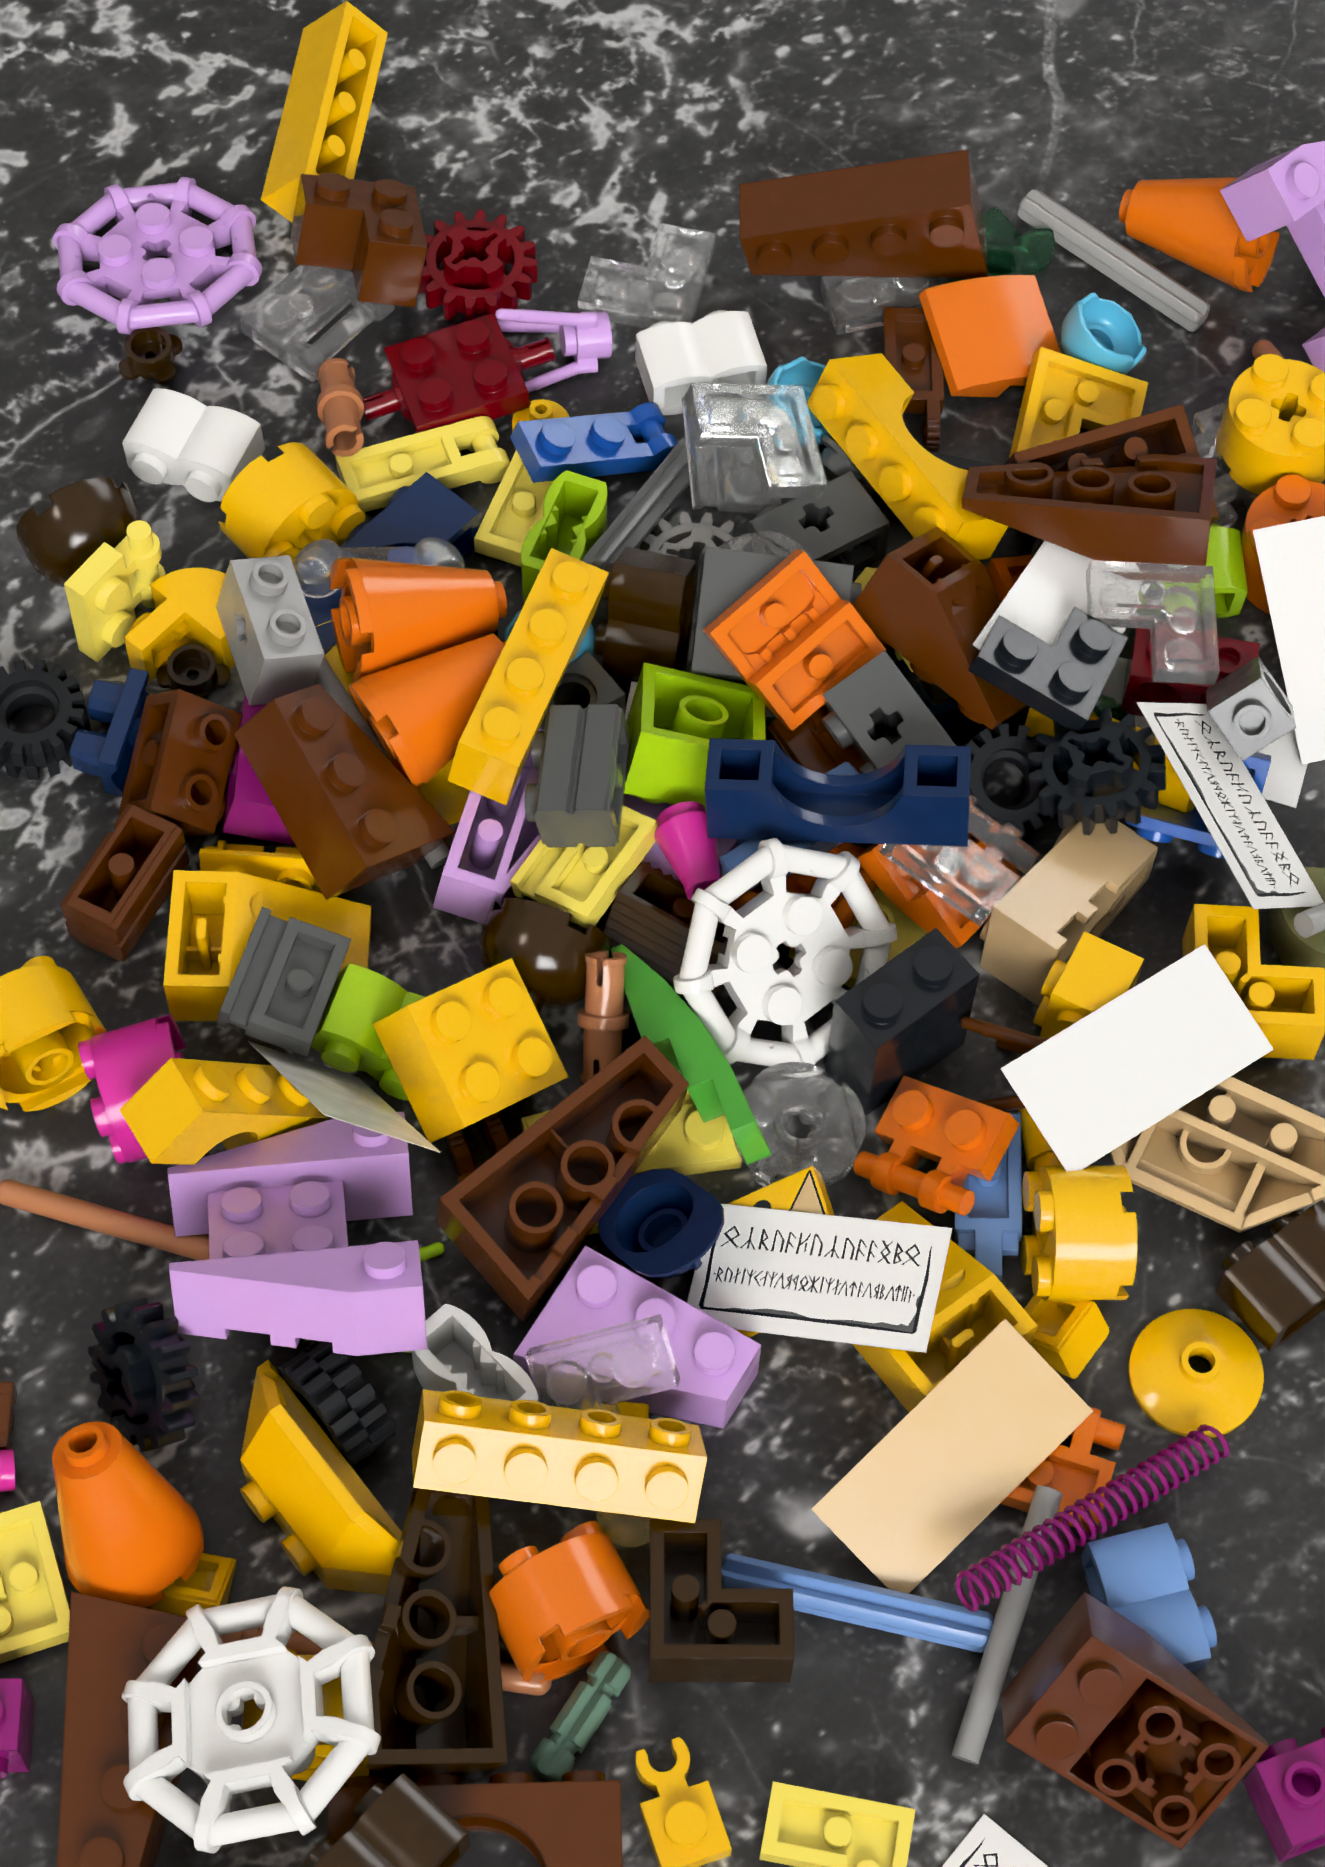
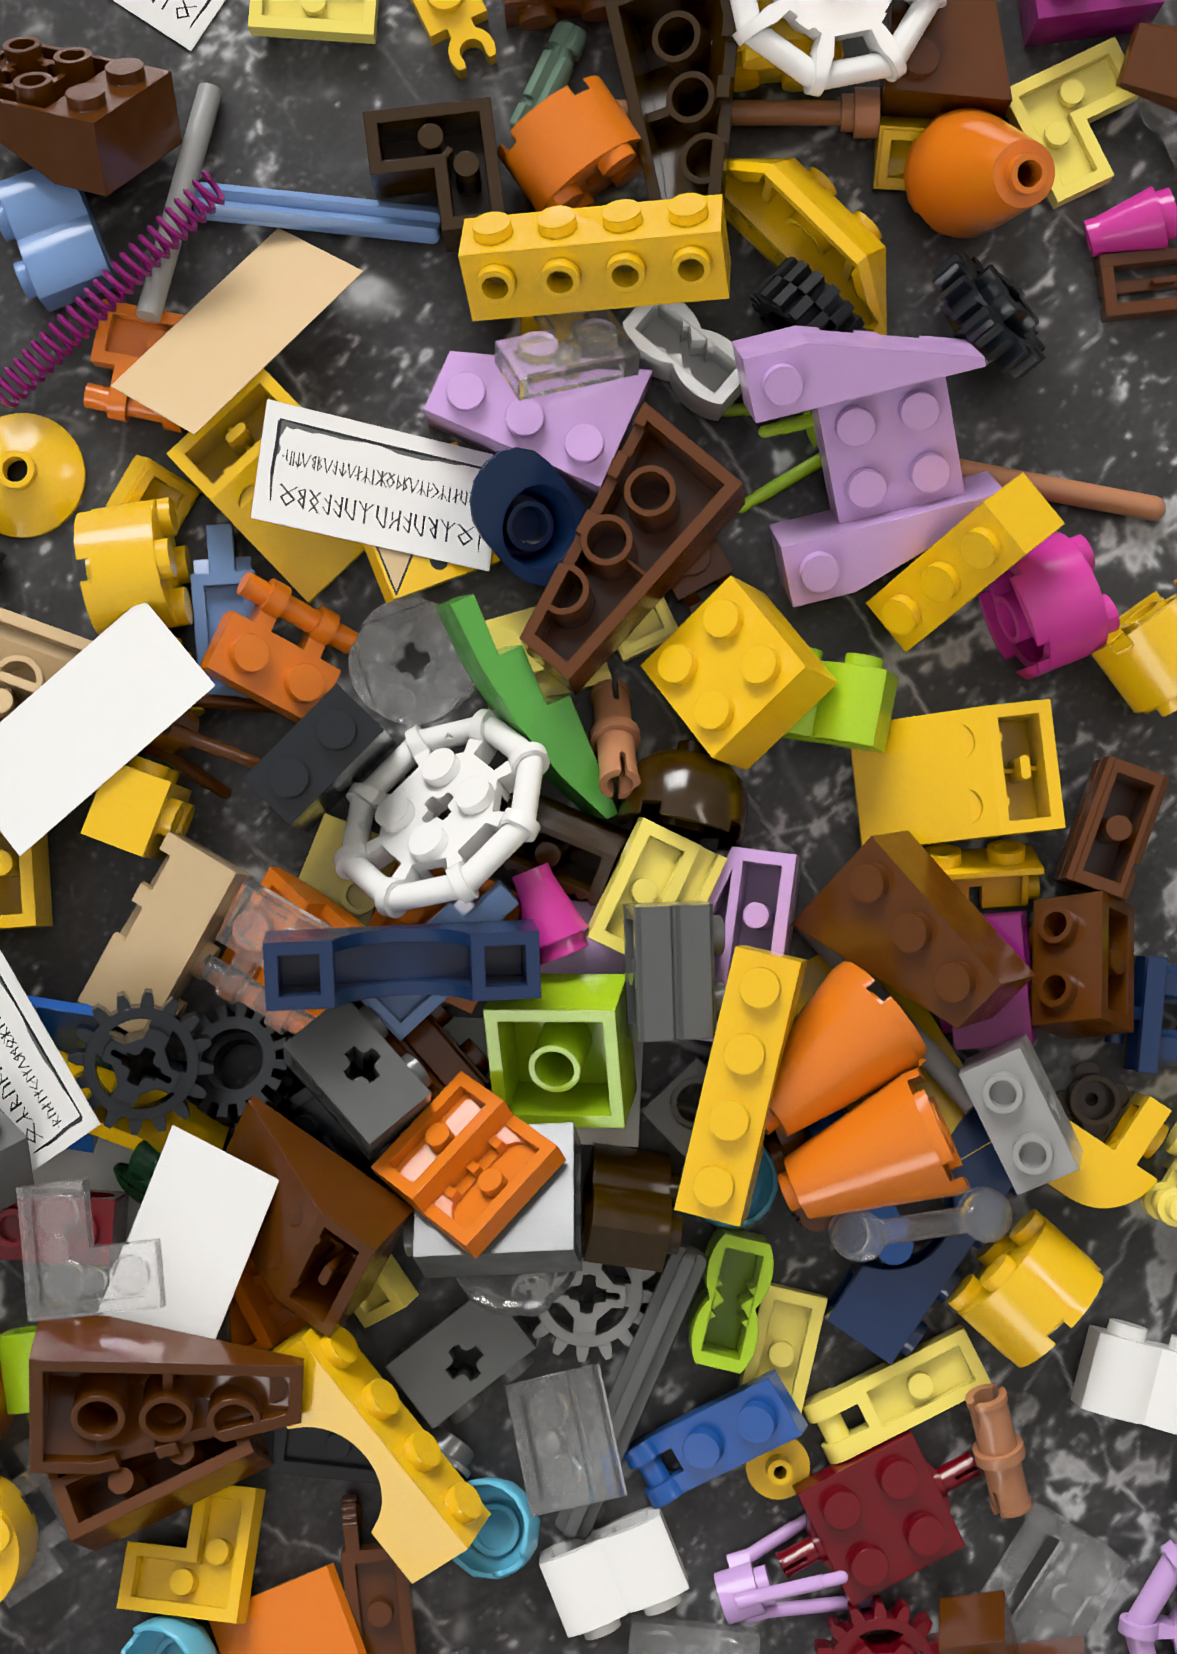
camera: 170 degrees right, 25 degrees up
(284, 981) = (932, 718): dark grey plate -> none
(343, 1097) = (852, 578): white sticker -> none
(769, 421) = (523, 1464): clear plate -> none
(1054, 678) = (188, 1153): plate -> none

